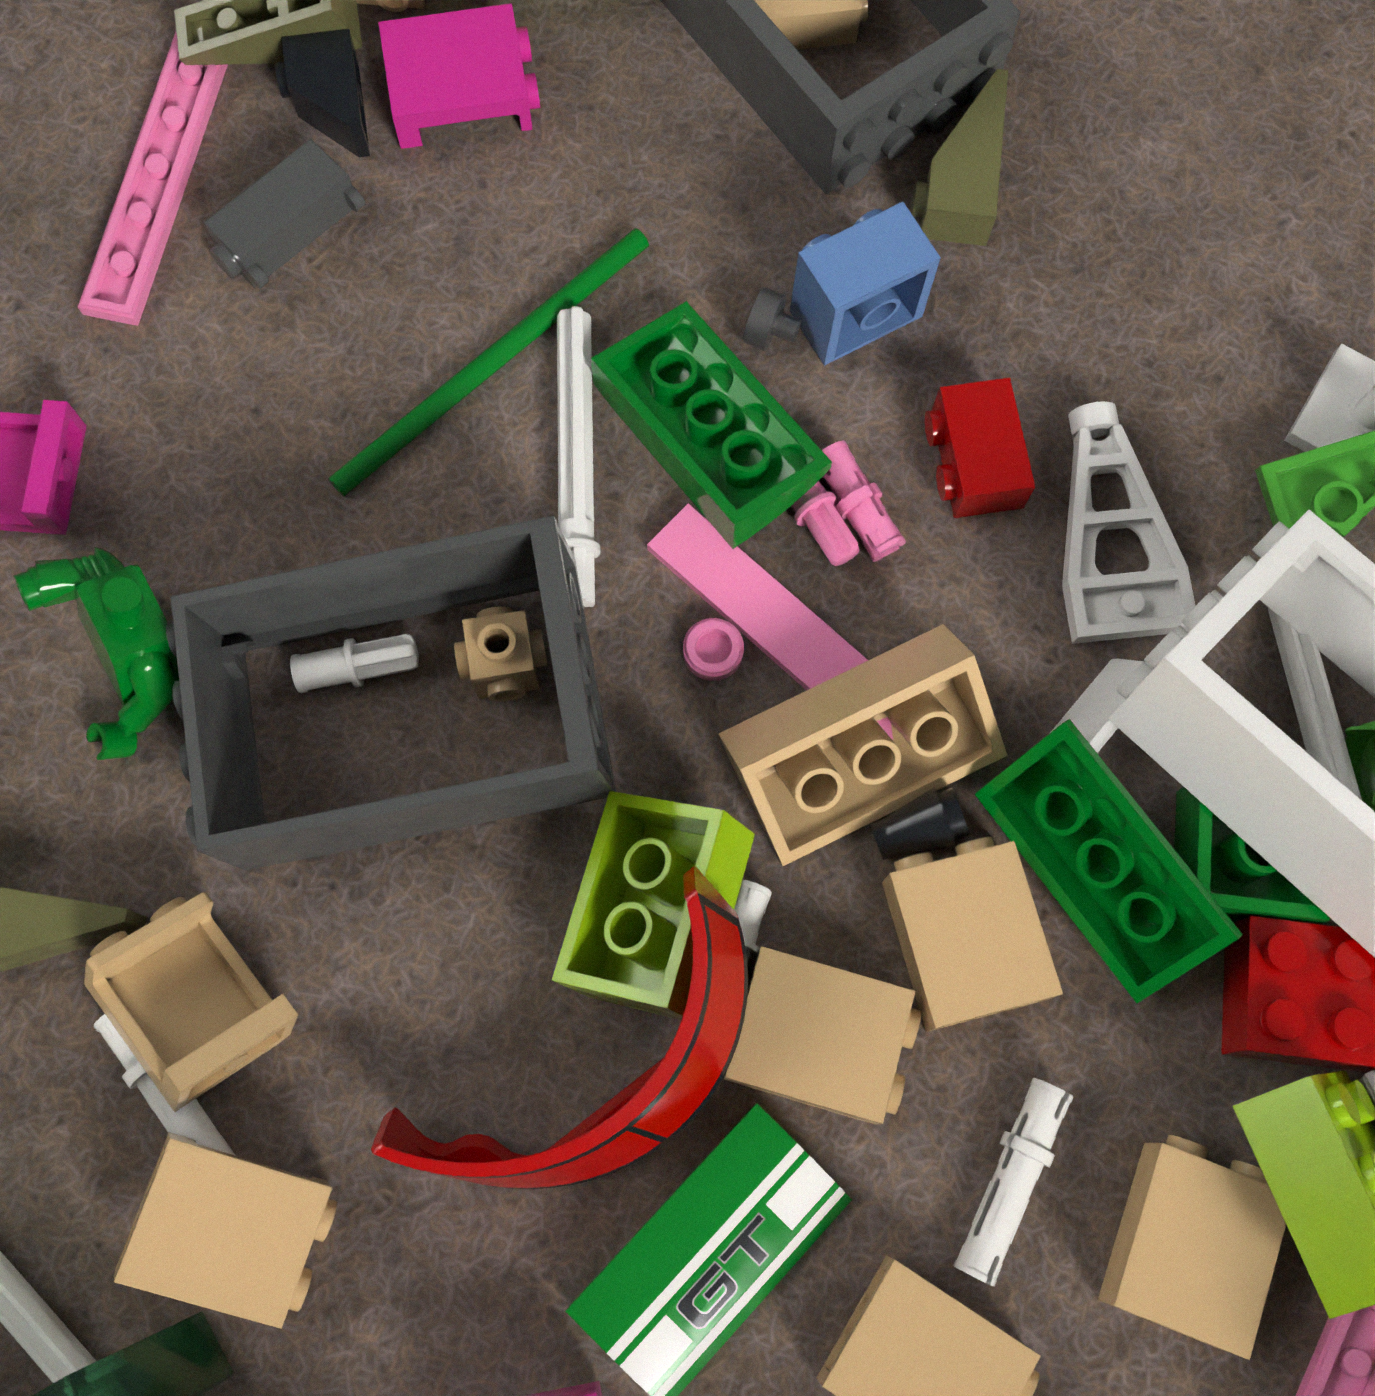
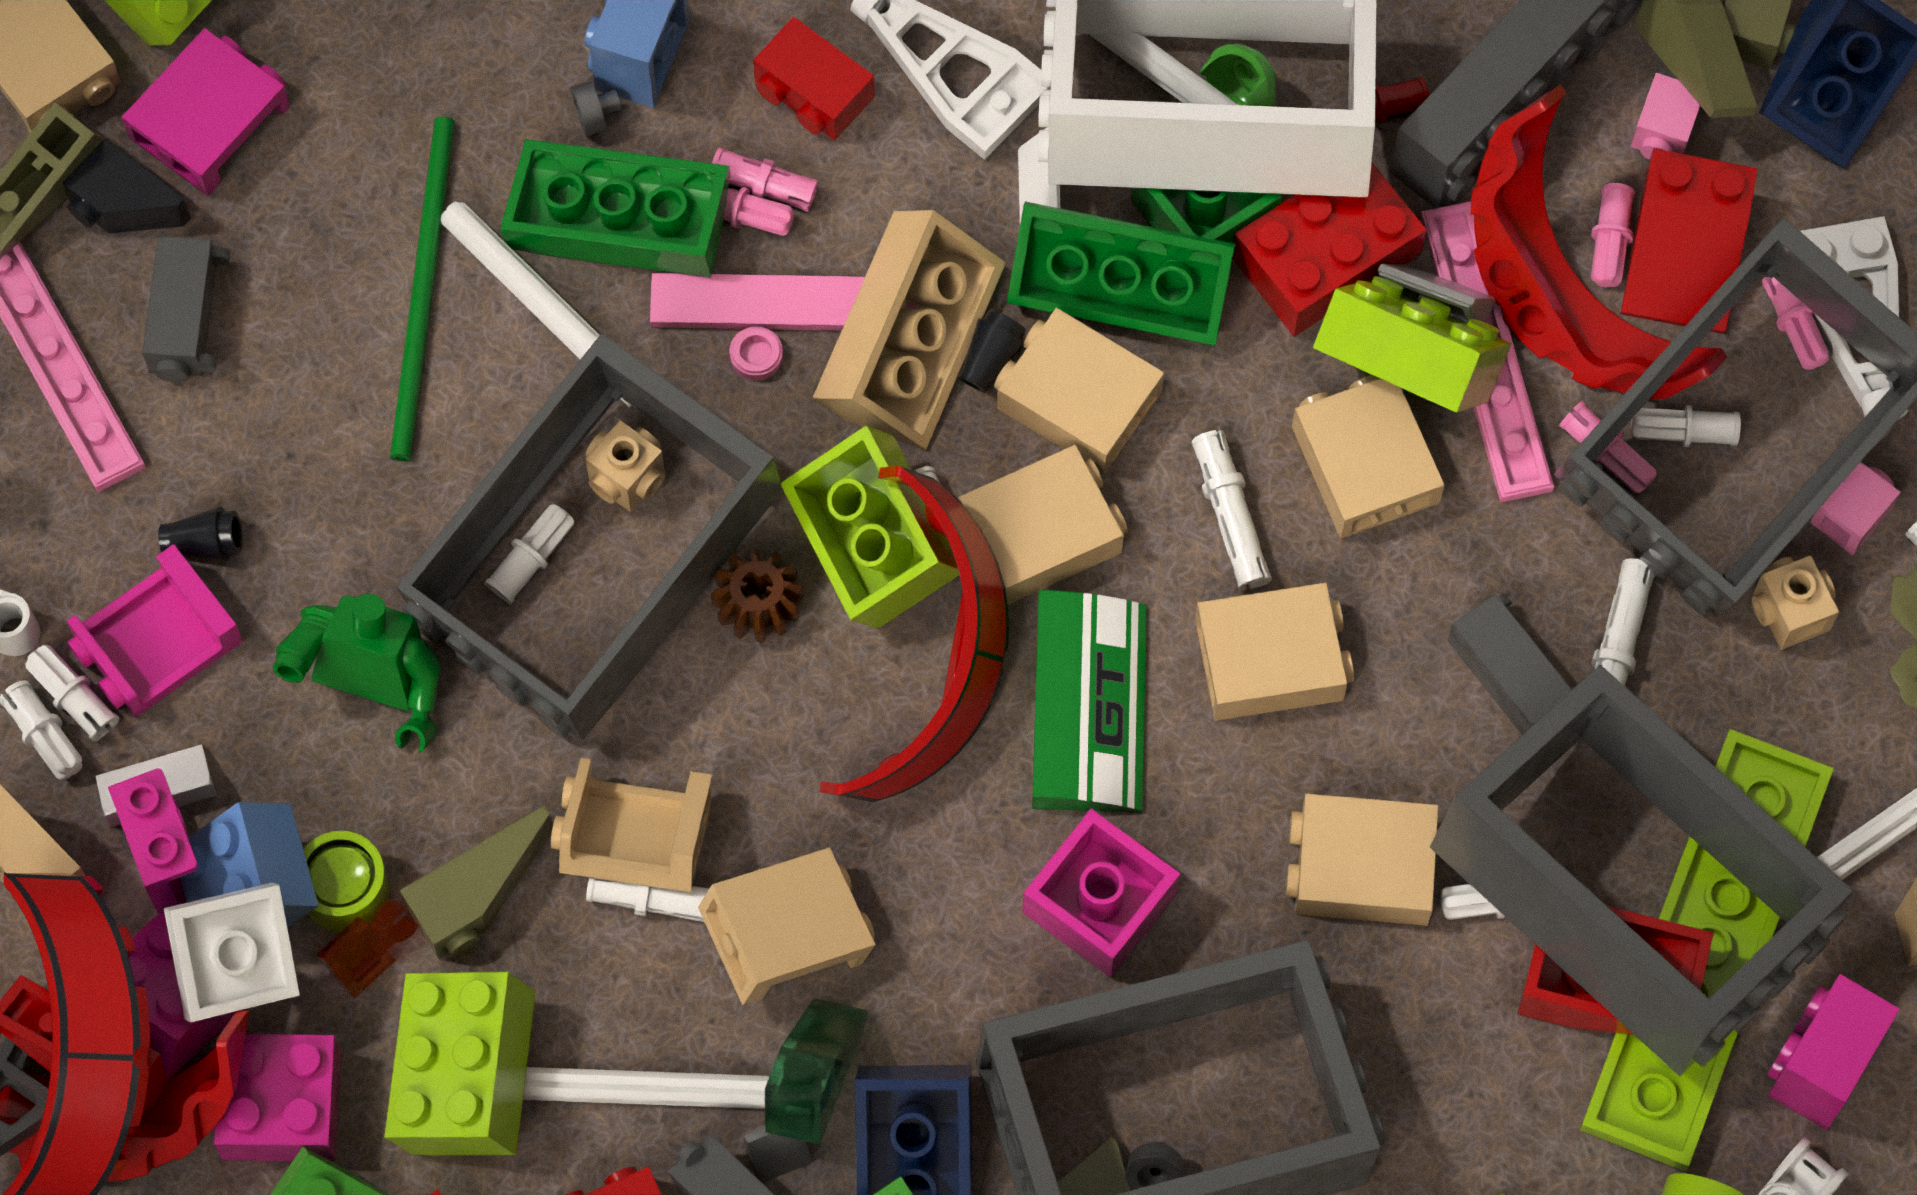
camera: 40 degrees left, 5 degrees down
(118, 420) = (204, 535): none -> black cone
(486, 888) = (751, 611): none -> reddish brown gear

